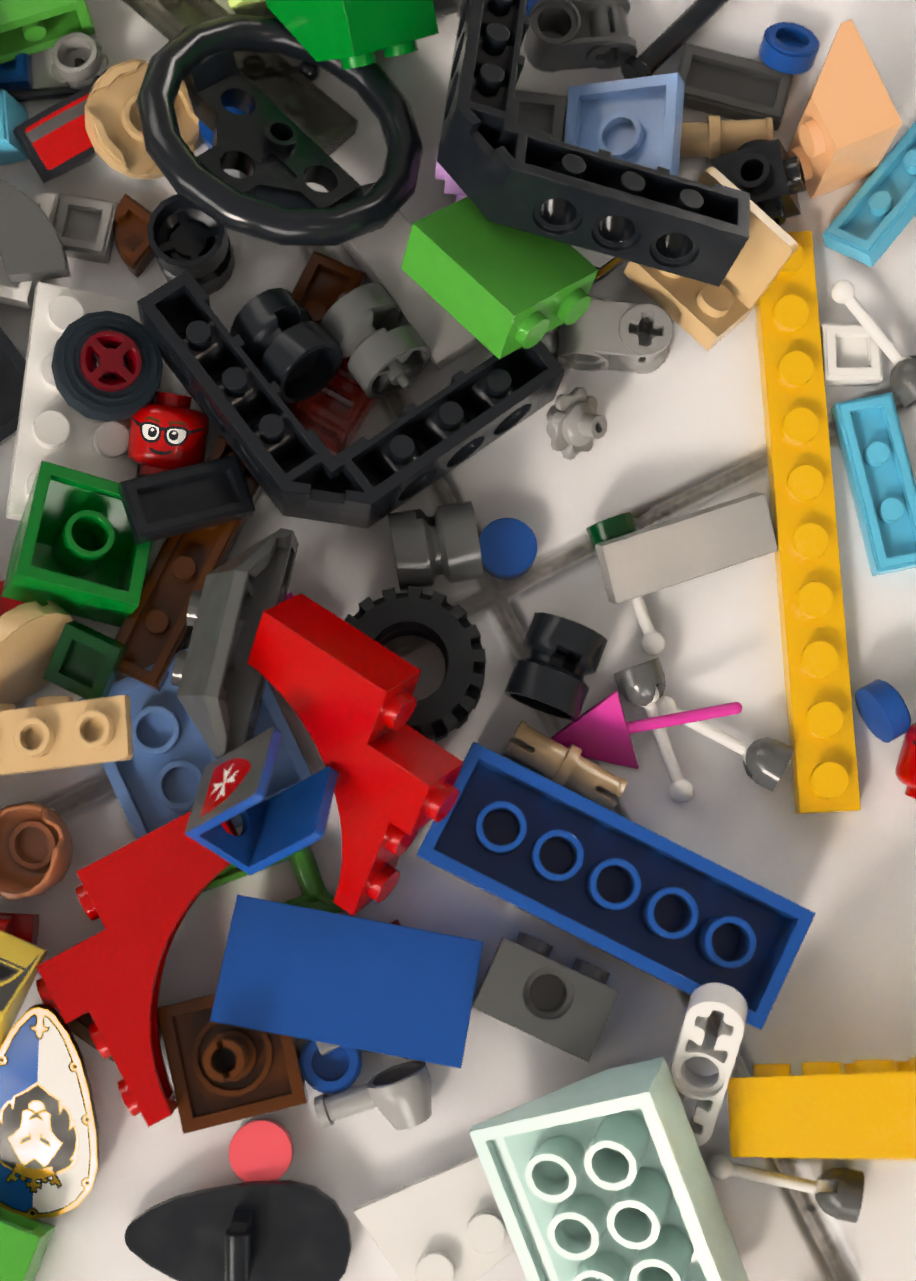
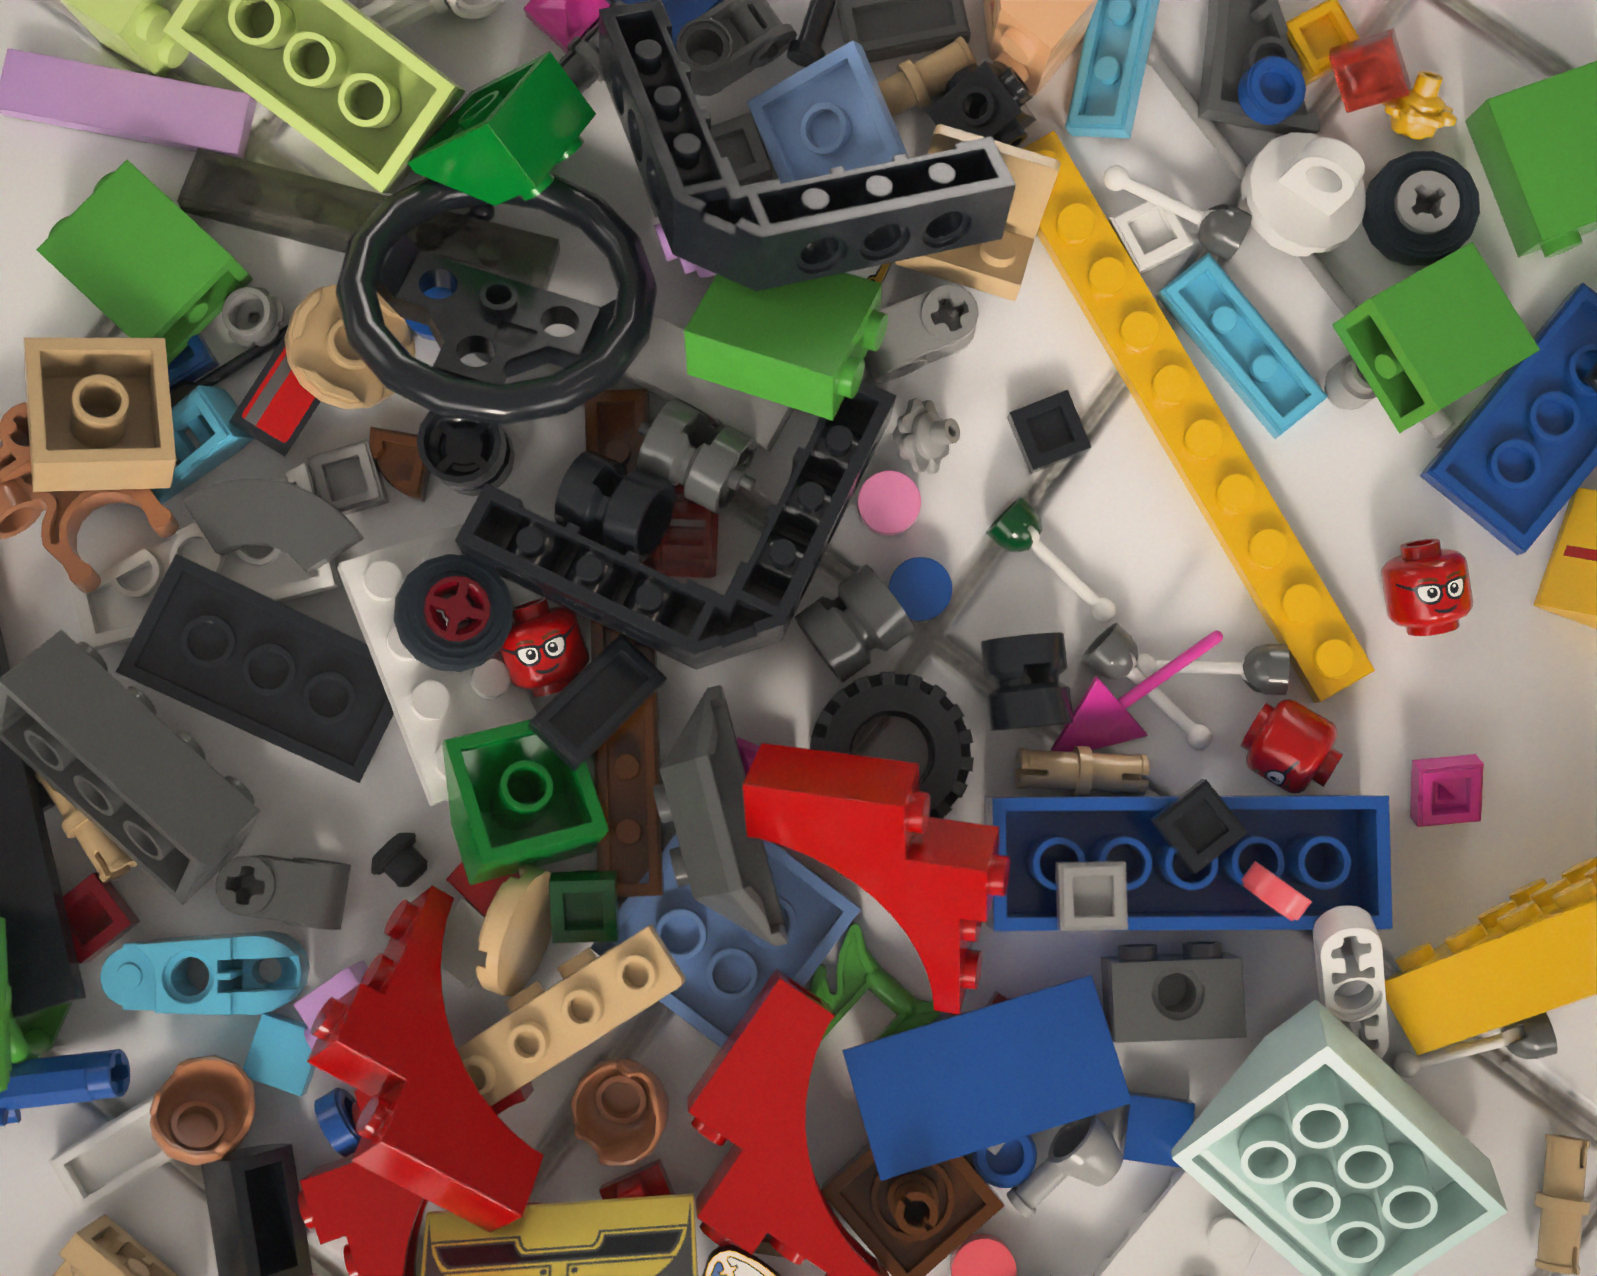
camera: 25 degrees left, 5 degrees up
(270, 826) = (847, 970): blue piece -> none
(469, 1102) = (1154, 1127): none -> blue tile
(514, 865) = (1091, 896): none -> light grey tile
(517, 465) = (889, 503): none -> bright pink tile
(636, 853) = (1198, 826): none -> black tile
(673, 941) = (1275, 892): none -> coral tile
(682, 474) = (1049, 431): none -> black tile
(686, 547) = (1091, 504): light grey tile -> none
(755, 836) = (1291, 746): none -> red head
(872, 944) = (1446, 790): none -> dark pink tile
(883, 710) = (1350, 566): blue tile -> none

